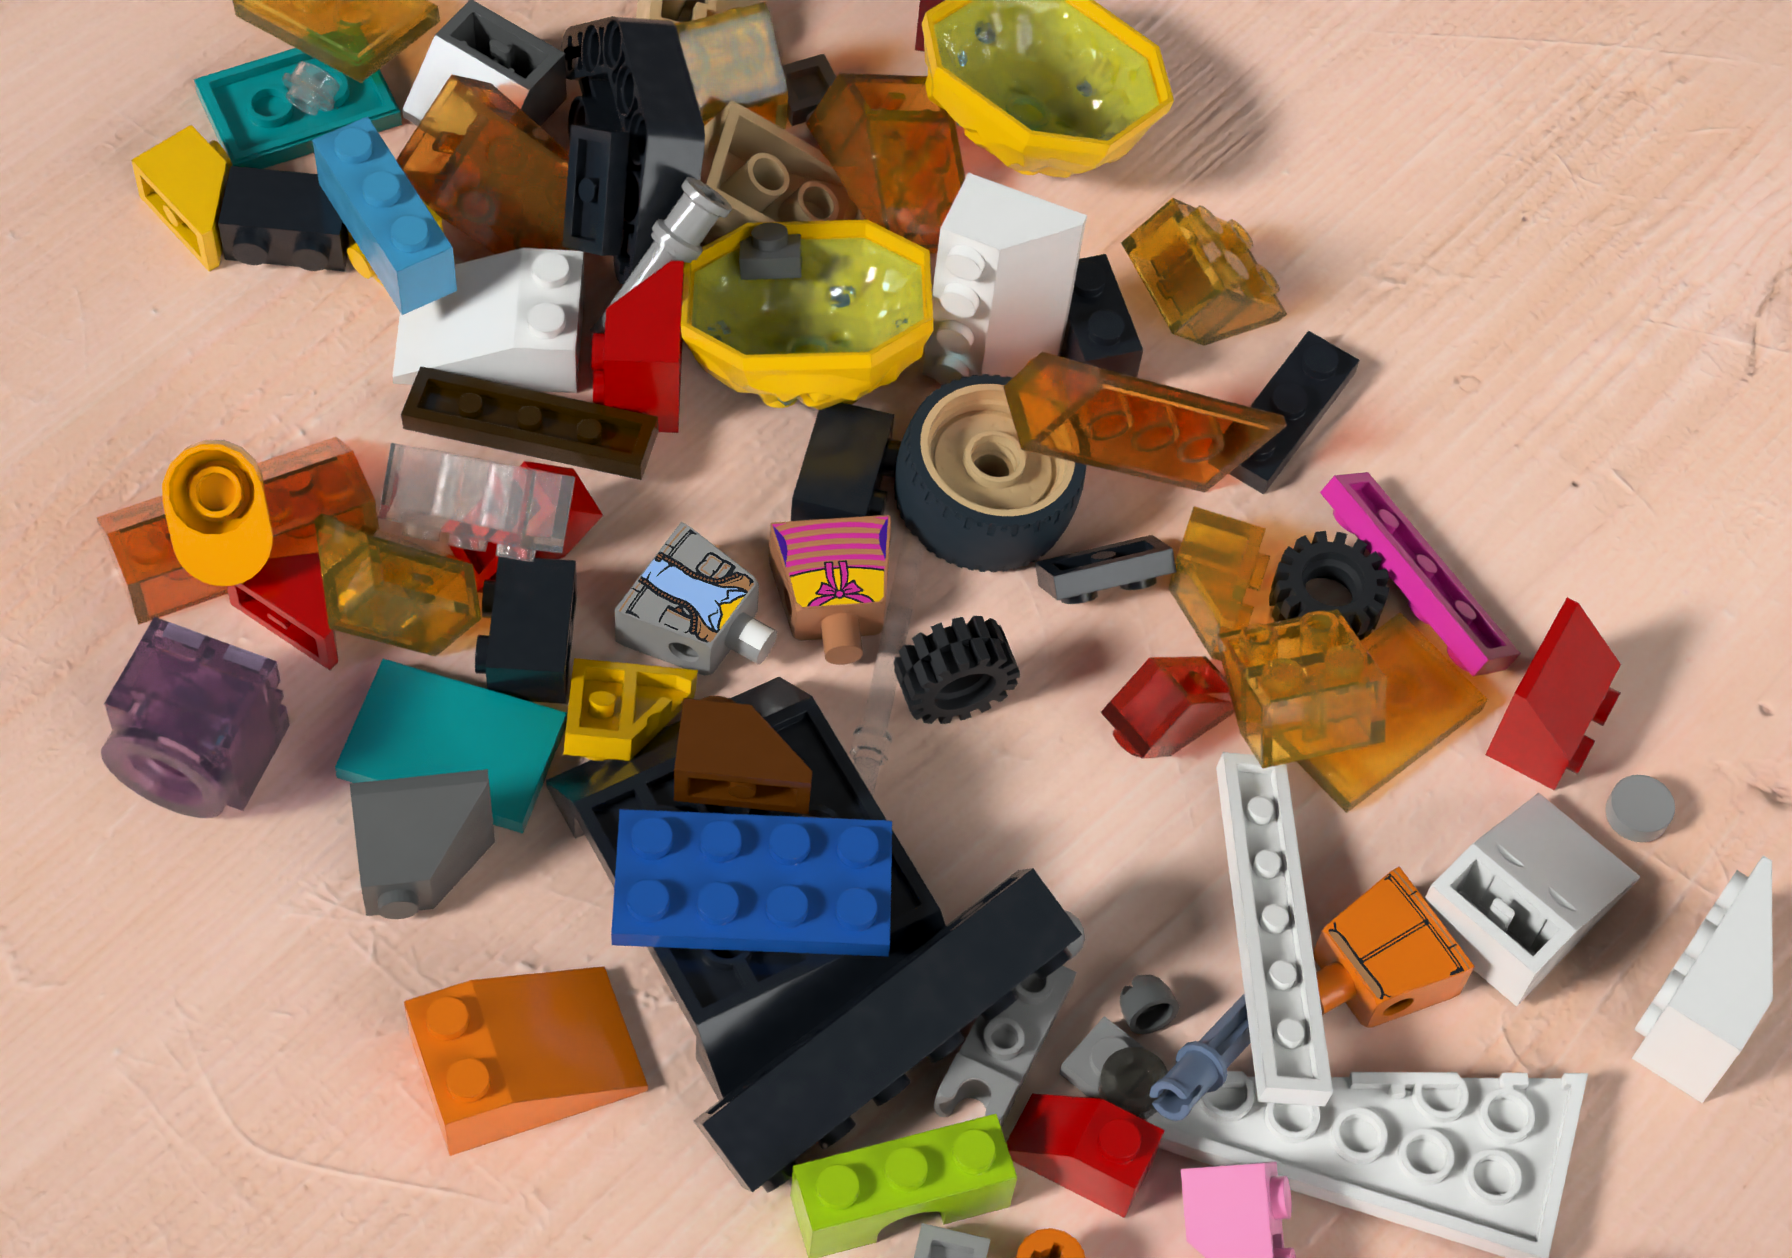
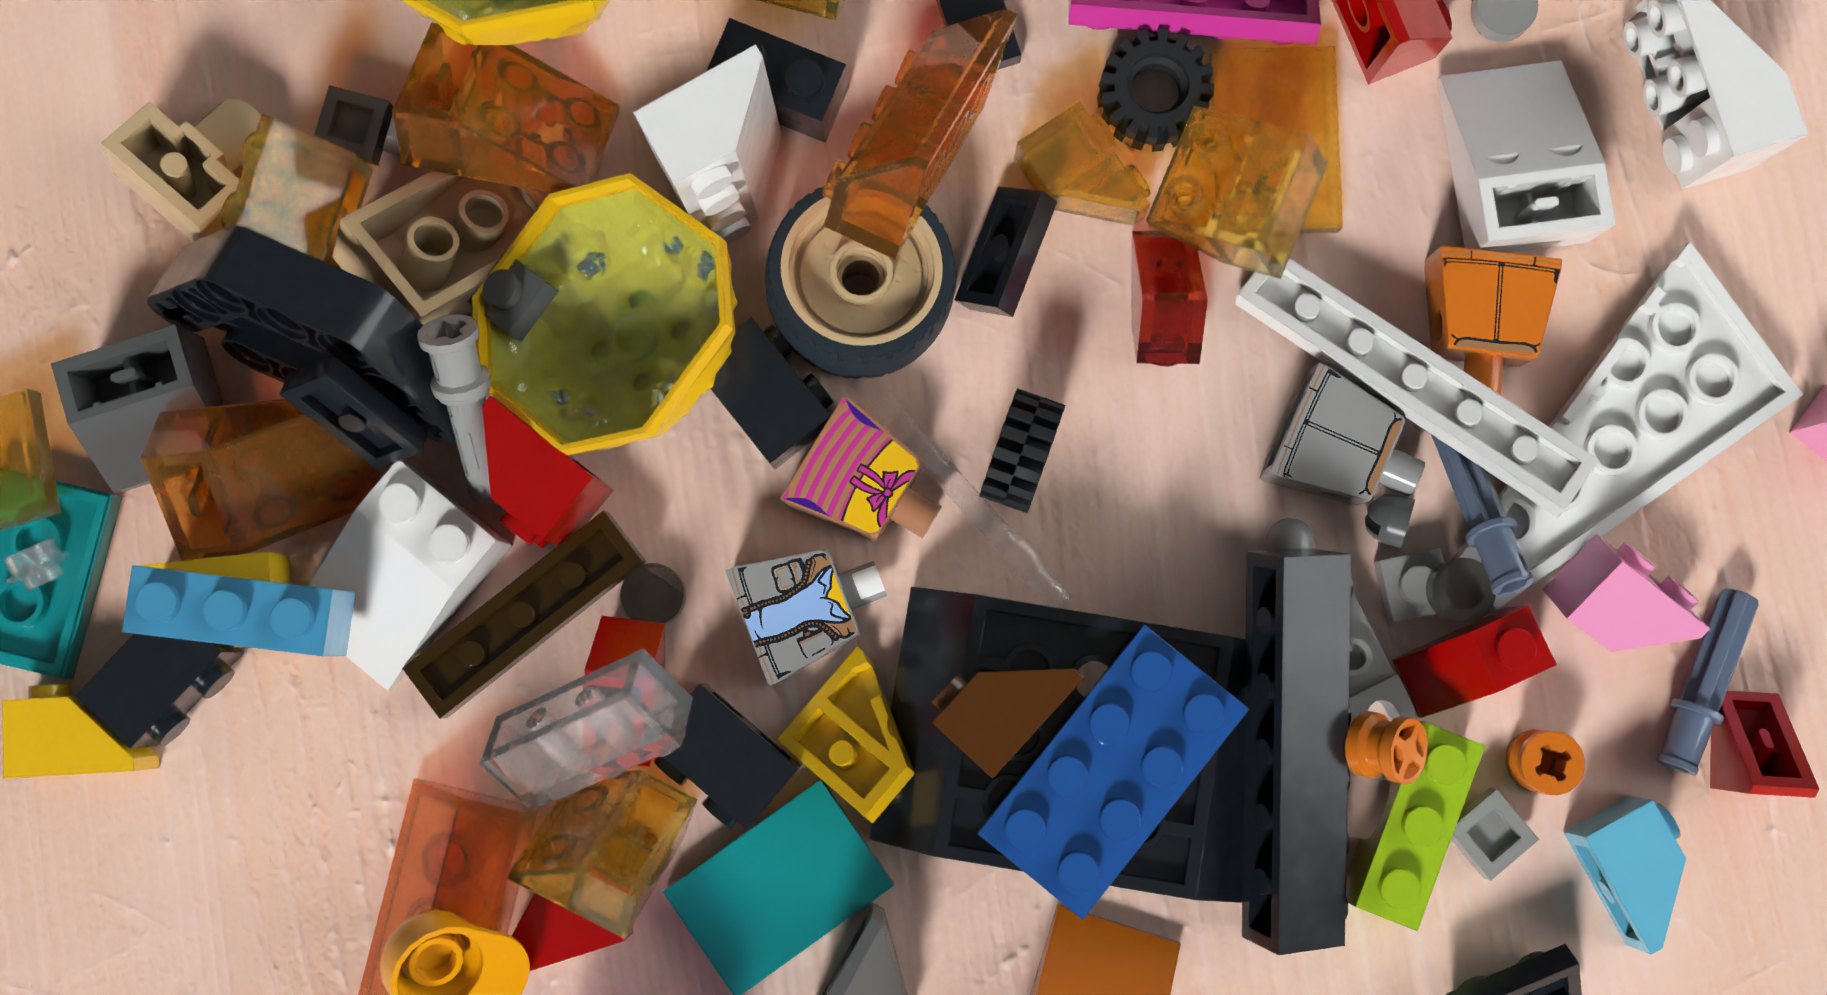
camera: 45 degrees left, 25 degrees up
(623, 505) = (653, 594): none -> clear smoke tile
(961, 1101) = (1386, 747): none -> orange wheel
(1170, 913) = (1340, 443): none -> light grey torso

